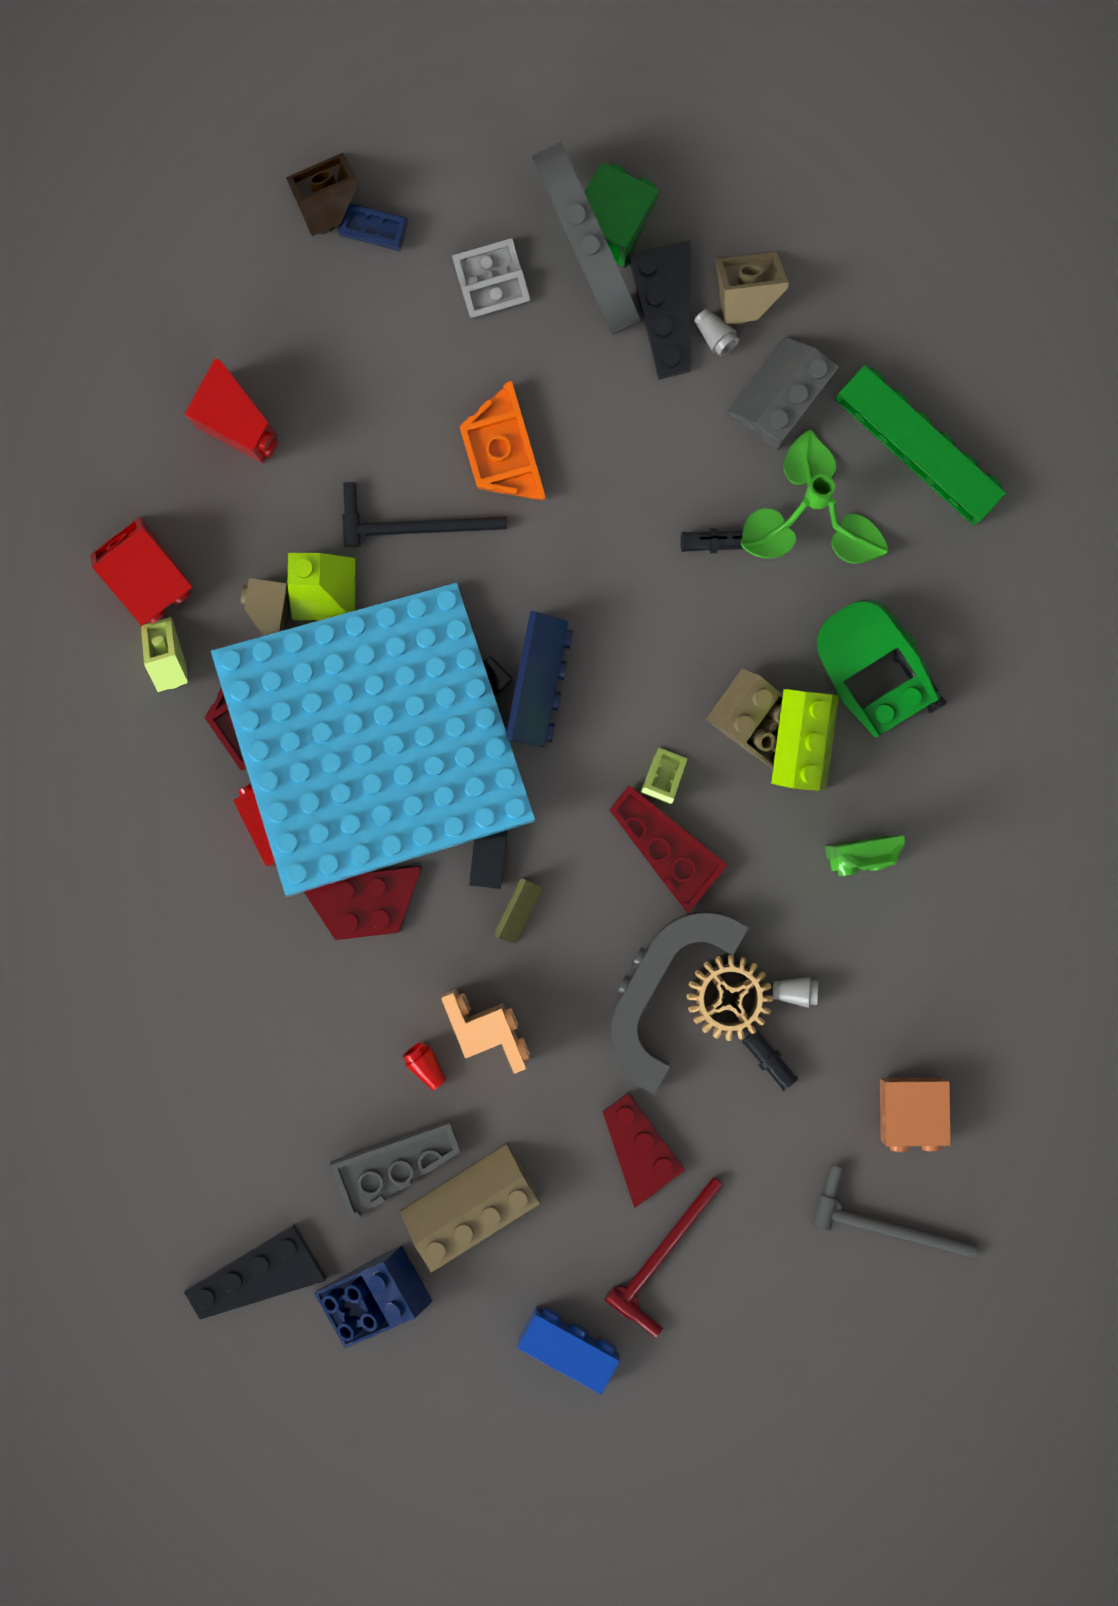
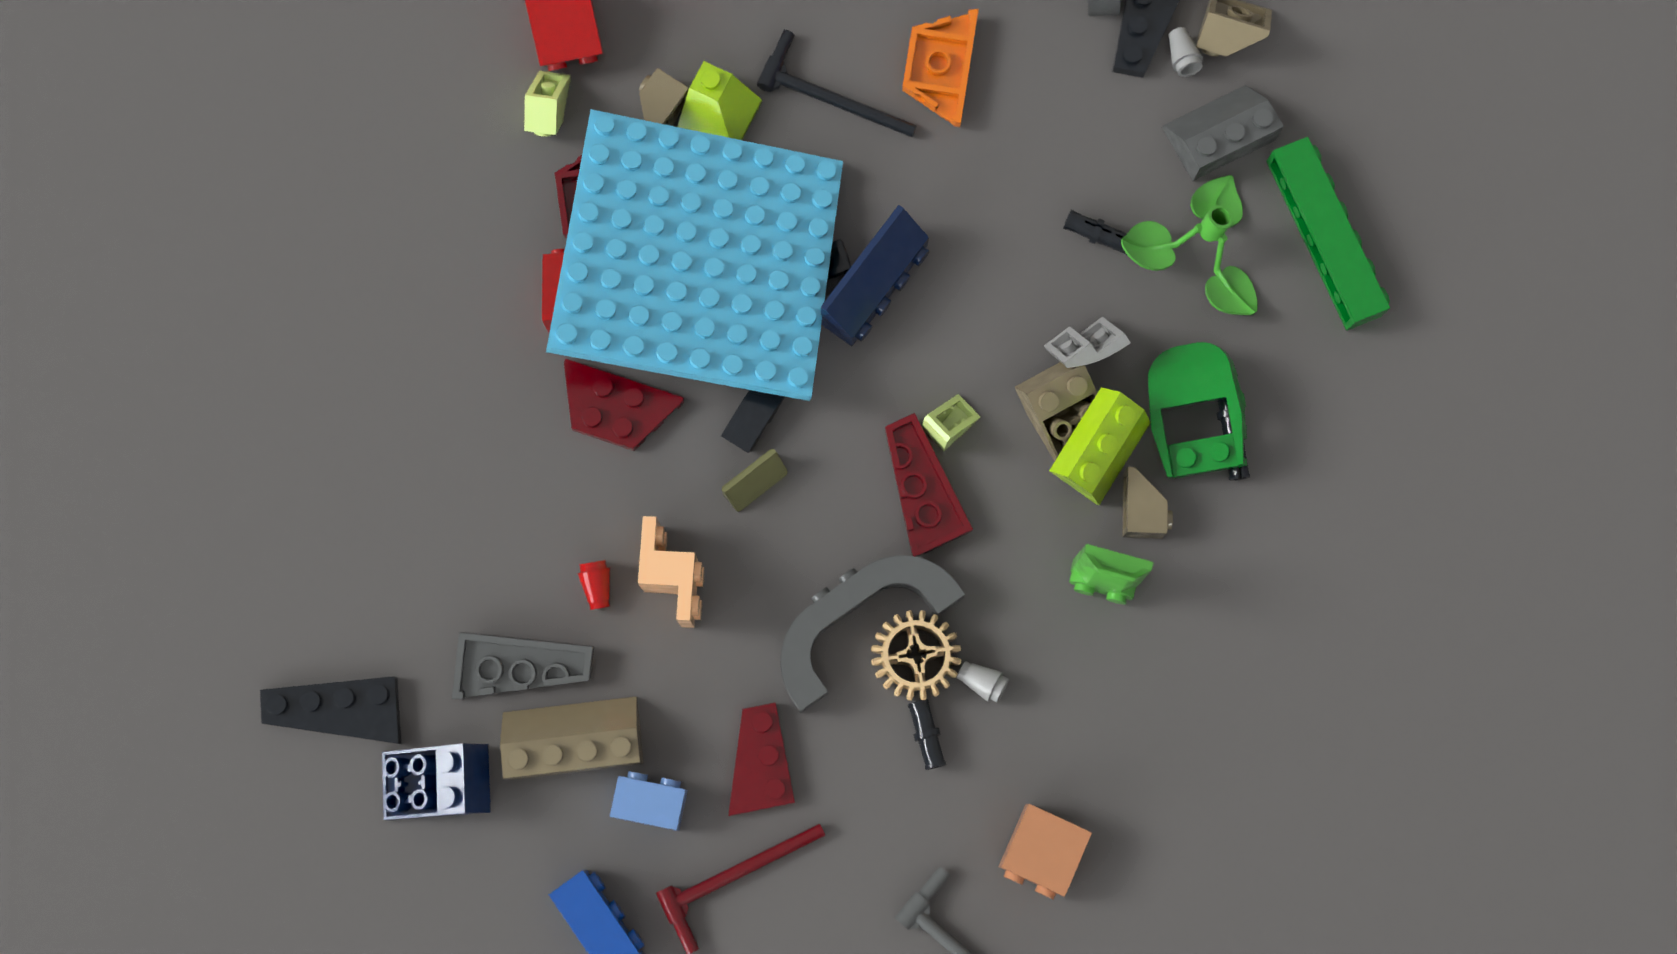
camera: 25 degrees right, 10 degrees down
(562, 1229) = (649, 802): none -> medium blue brick
(754, 655) = (1089, 346): none -> light grey slope
(867, 776) = (1143, 508): none -> dark tan slope

